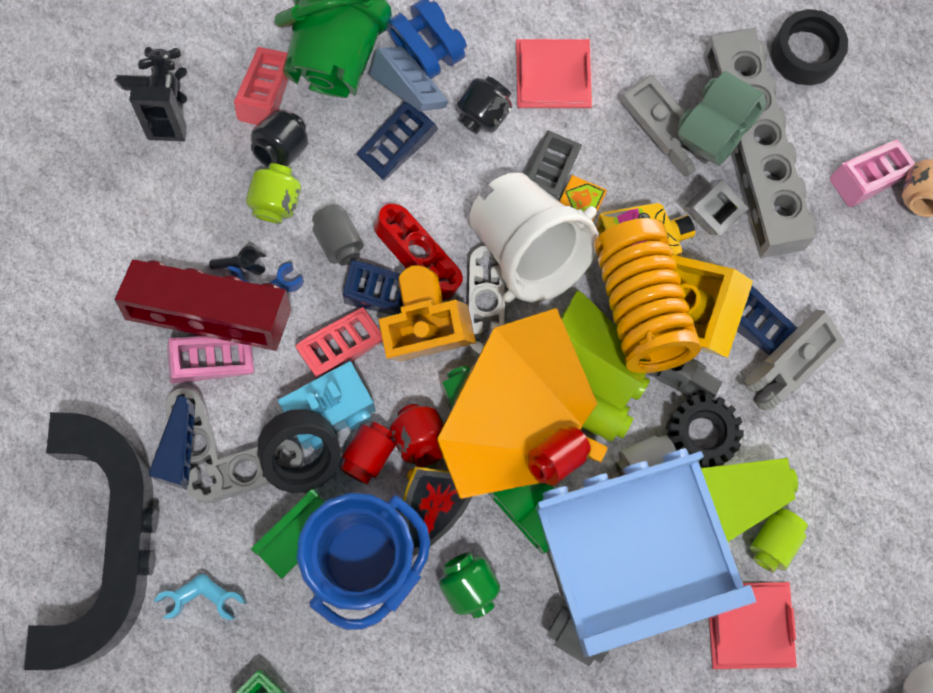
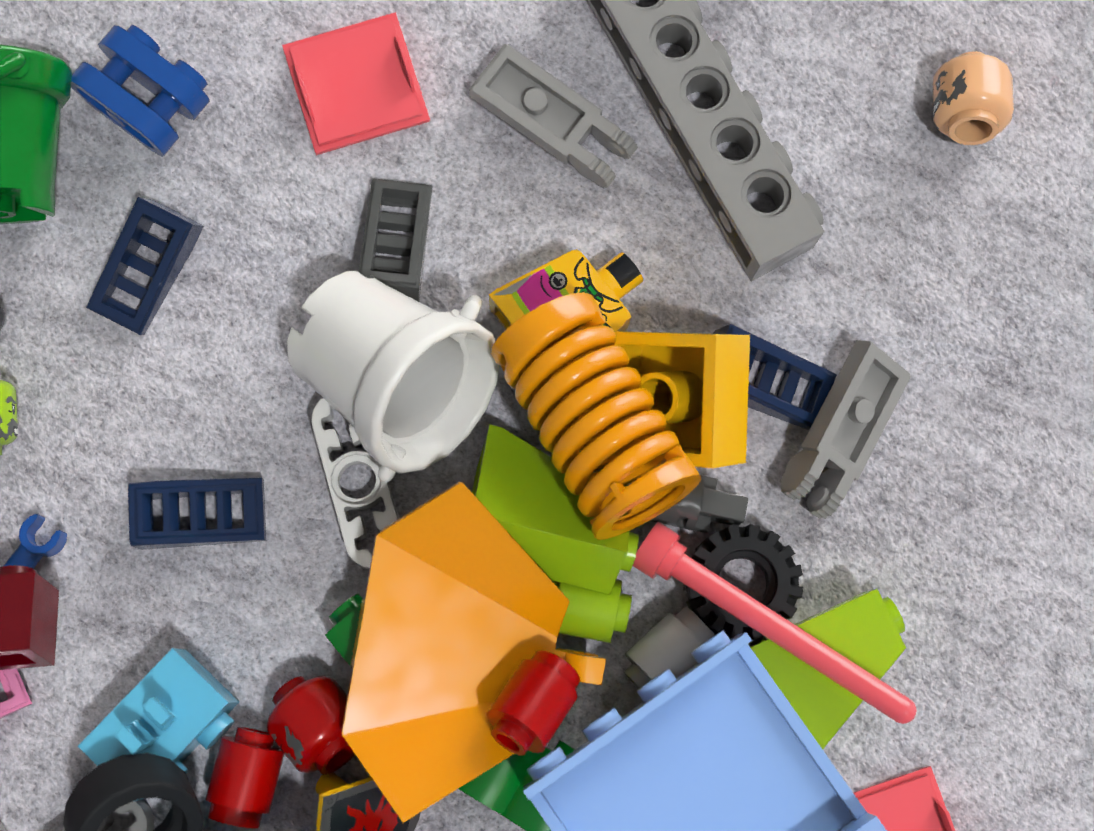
camera: 20 degrees left, 5 degrees up
(319, 339) = (116, 623): coral slope -> none
(337, 235) = (94, 448): dark grey brick -> none
(405, 78) = (127, 166): sand blue slope -> none
(416, 235) = (223, 410): red beam -> none
(425, 321) = (268, 547): light orange brick -> none
(484, 105) = (261, 171): black head -> none
(582, 194) = (455, 273): tile -> none
(663, 400) = (666, 557): none -> coral piece
(716, 207) = (663, 228): brick -> none
(721, 118) = (630, 87): sand green brick -> none
(779, 540) = (897, 740): lime brick -> none
(854, 185) = (856, 122): bright pink slope -> none

